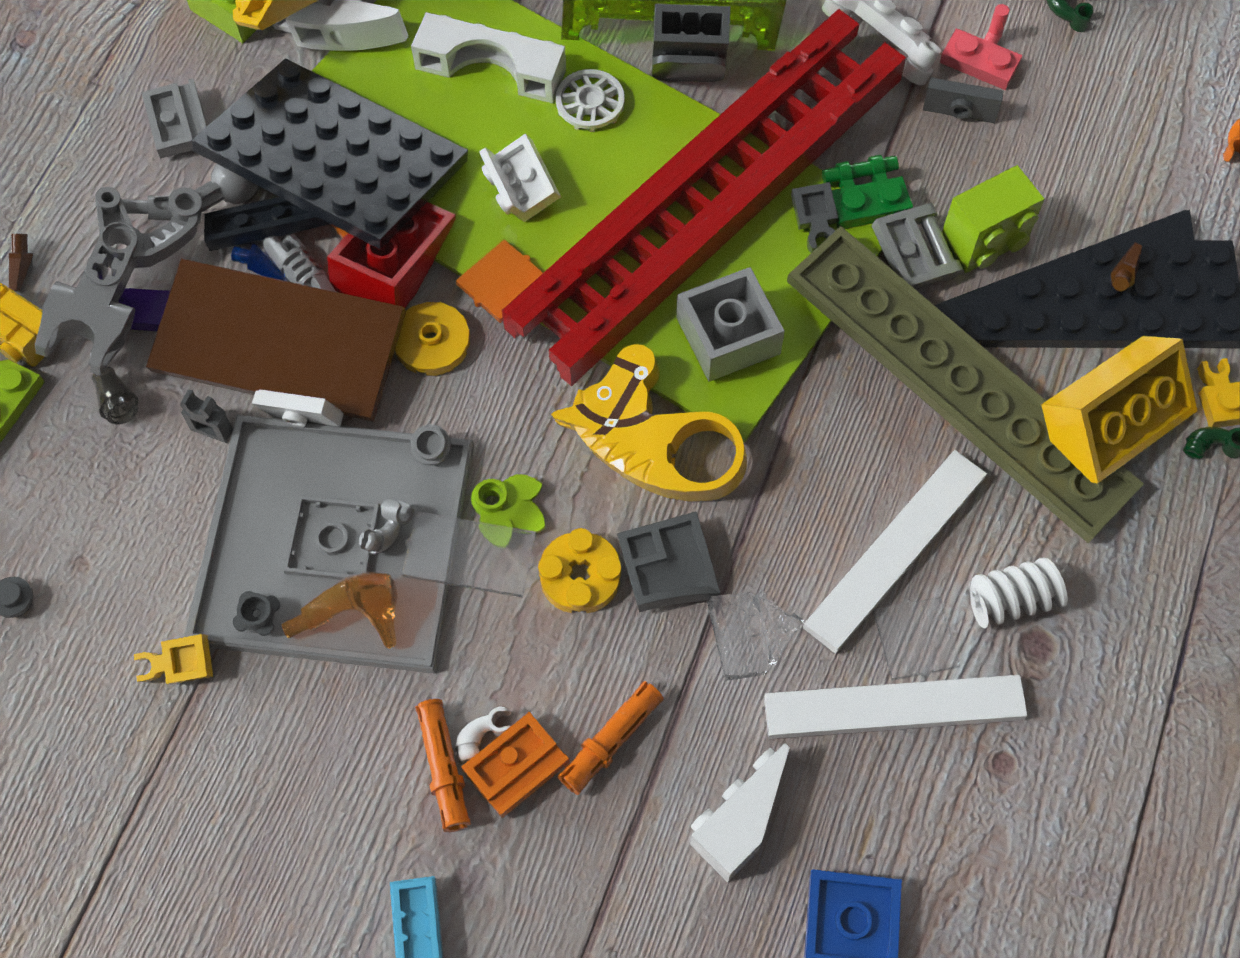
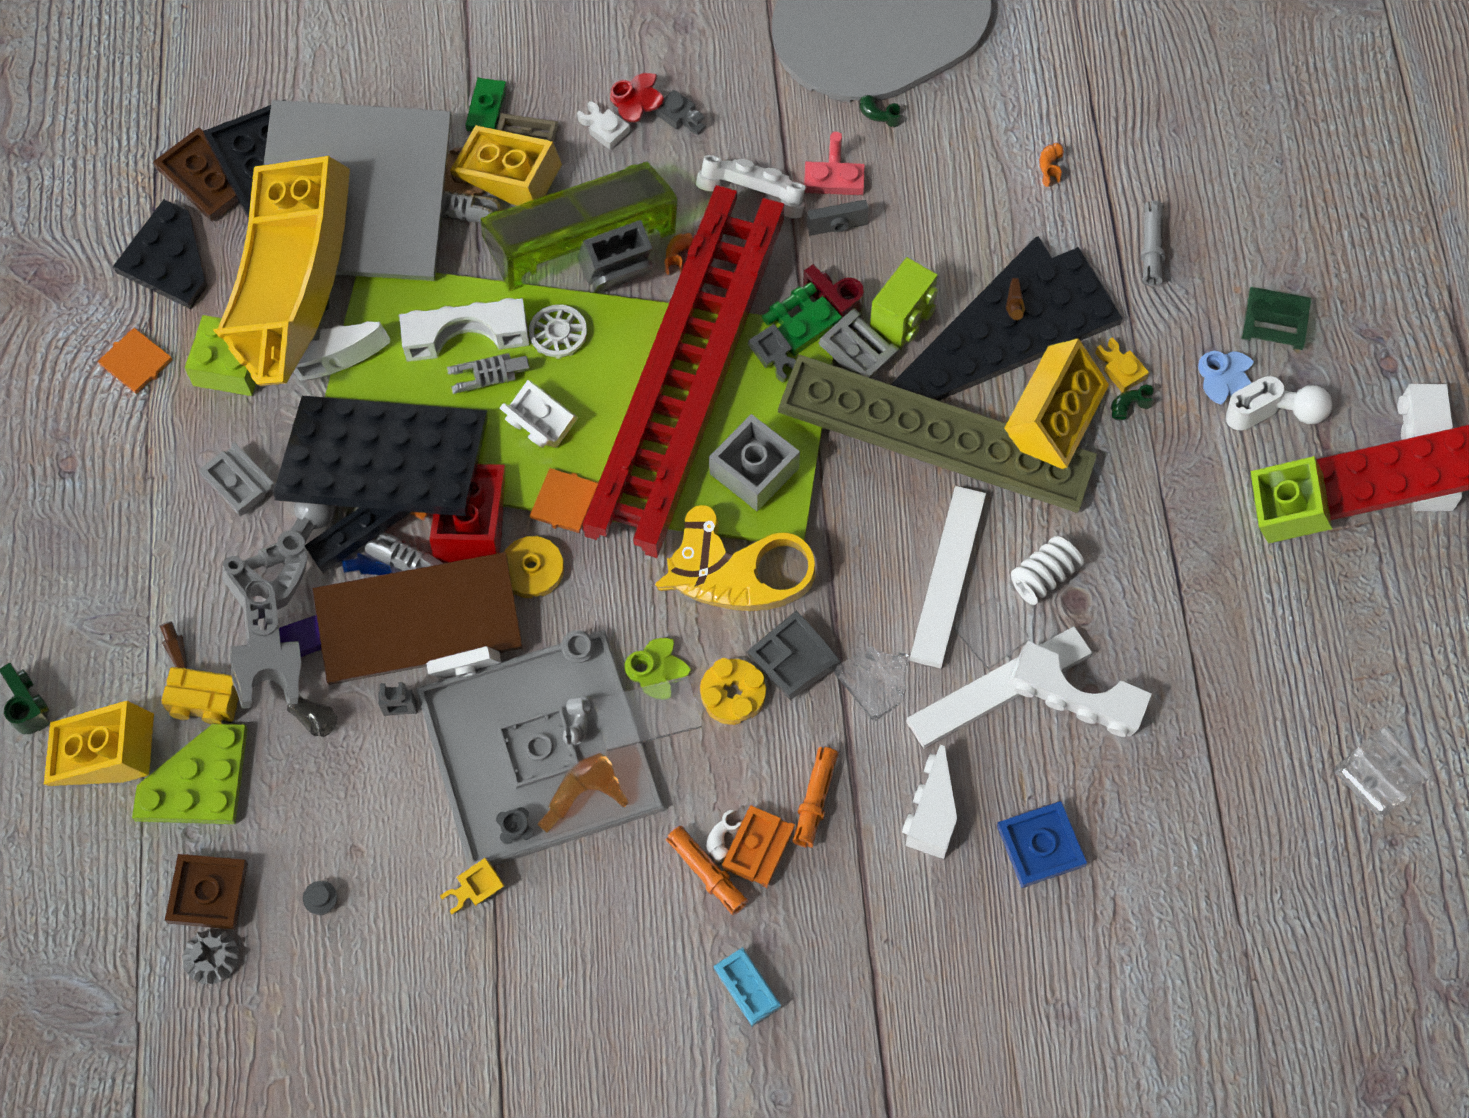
camera: 25 degrees left, 0 degrees up
(492, 111) = (488, 371): none -> light grey hinge
(760, 66) = (675, 246): none -> orange arm
(921, 179) = (835, 293): none -> dark red plate
(1026, 798) = (1040, 675): none -> white arch

